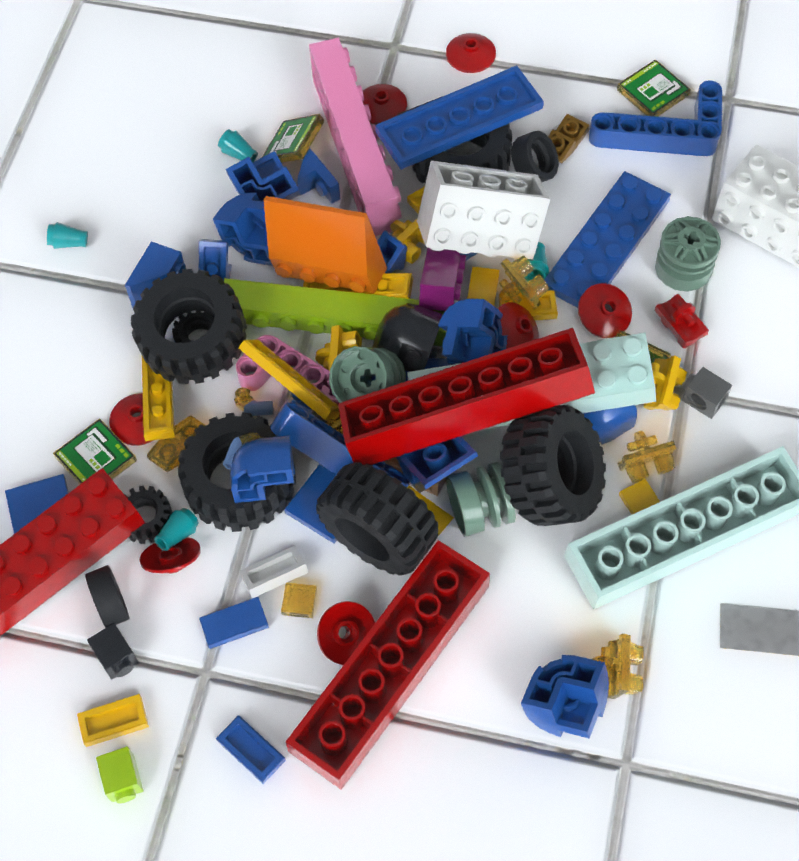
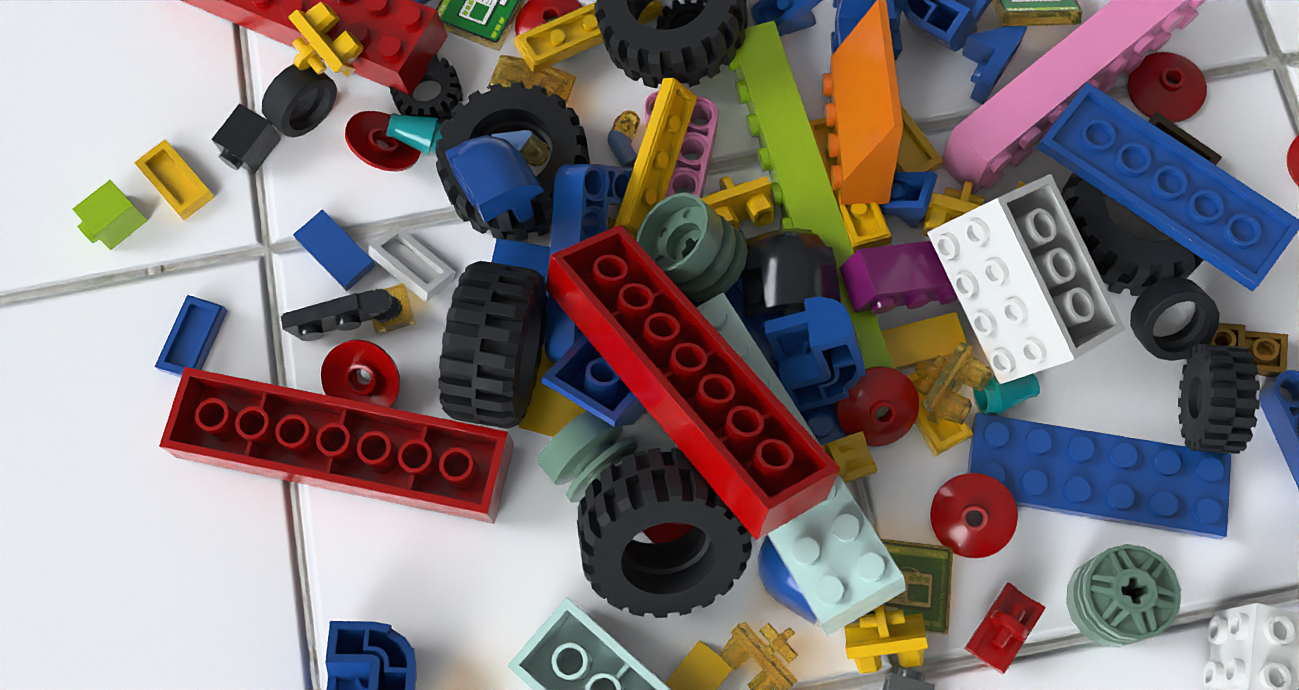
camera: 70 degrees right, 10 degrees up
(101, 542) = (337, 53): none -> yellow hips
(293, 624) = (341, 314): none -> black hinge
(594, 156) = (1218, 398): none -> black tyre

